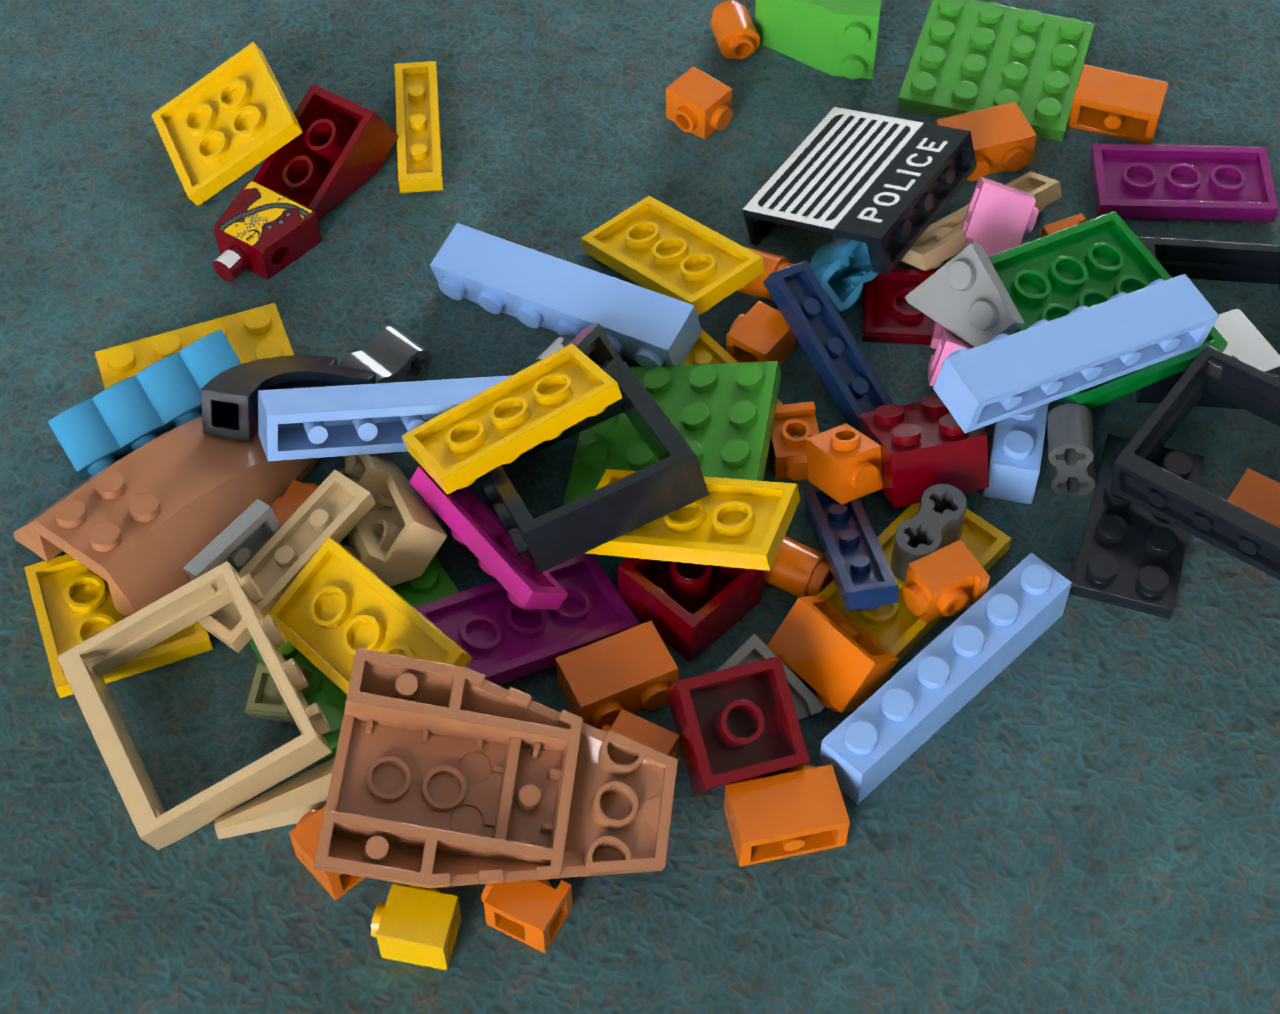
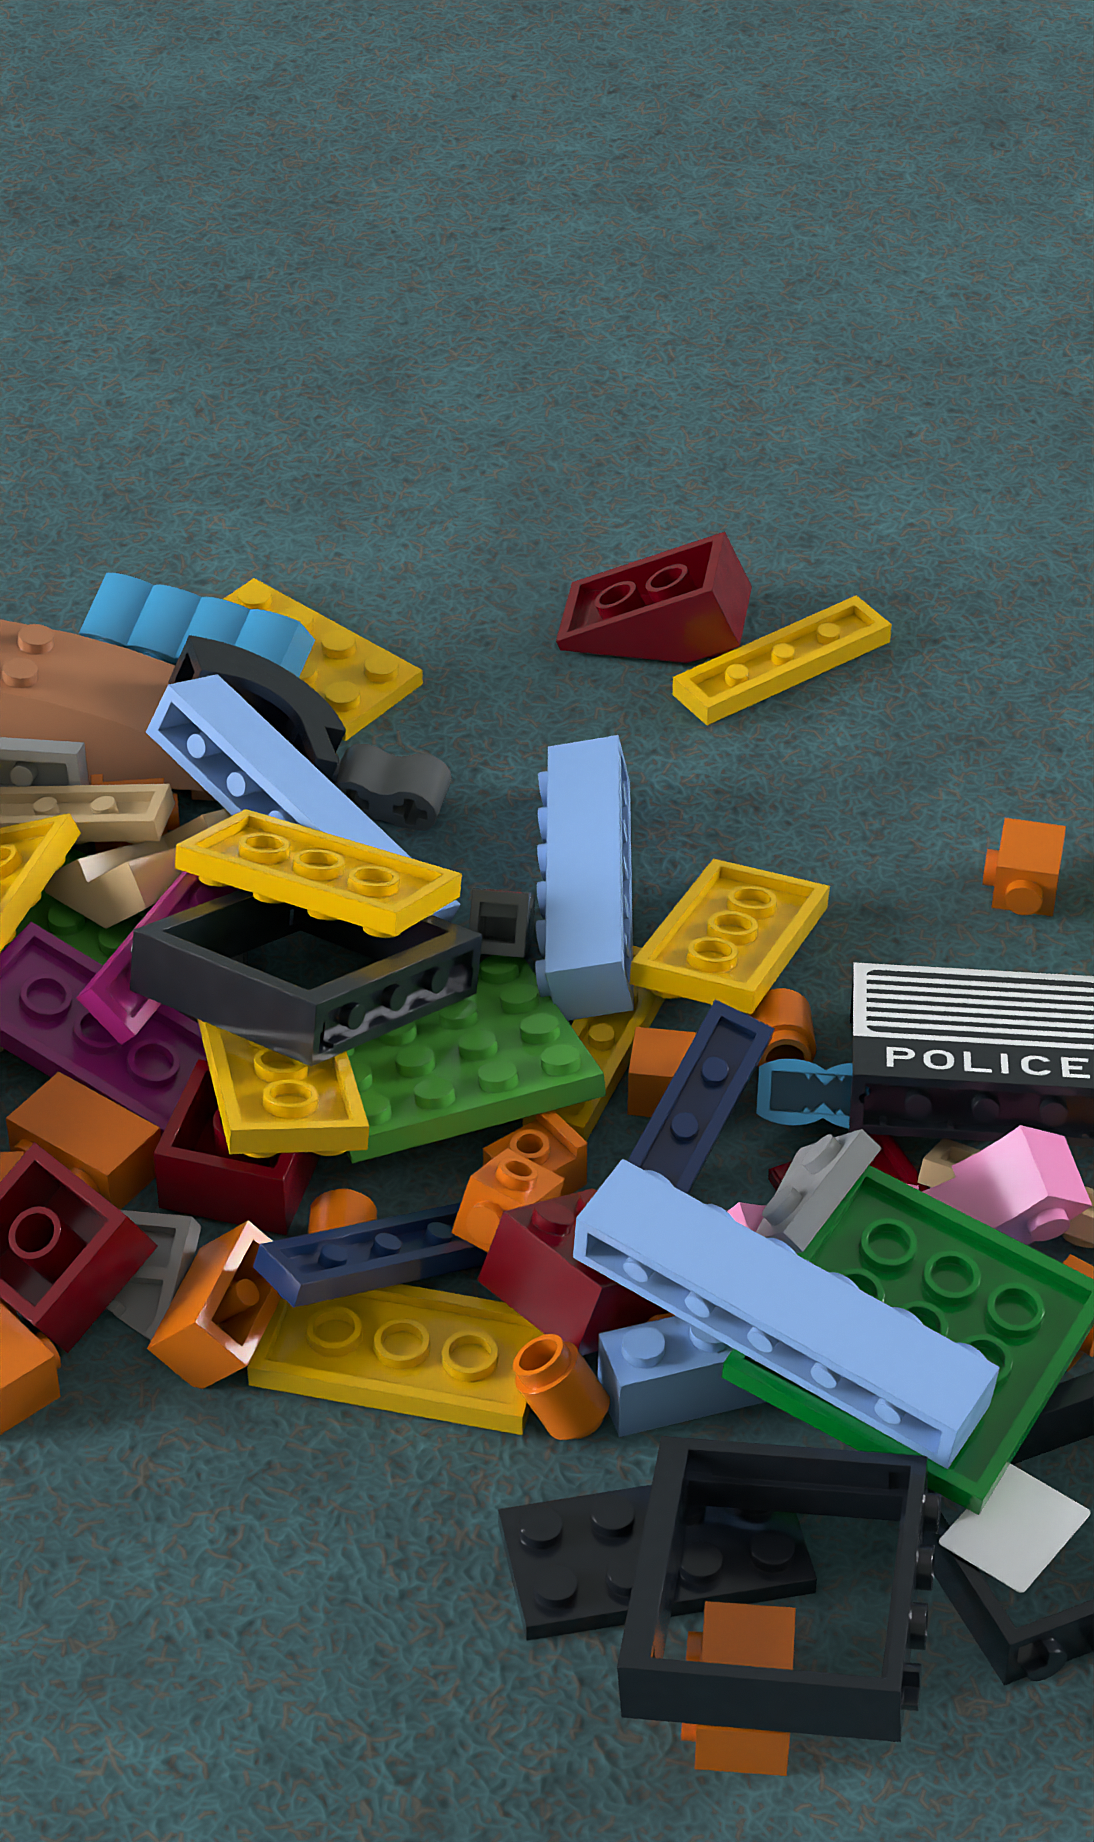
camera: 60 degrees right, 10 degrees down
(226, 124) = (634, 511): yellow plate -> none
(263, 233) = (506, 614): dark red torso -> none
(932, 528) = (447, 1318): dark grey axle -> none
(944, 582) = (379, 1358): orange brick -> none
(944, 677) = (266, 1426): light blue brick -> none
(996, 499) = (560, 1387): none -> orange brick
(1071, 450) = (689, 1398): dark grey axle -> none

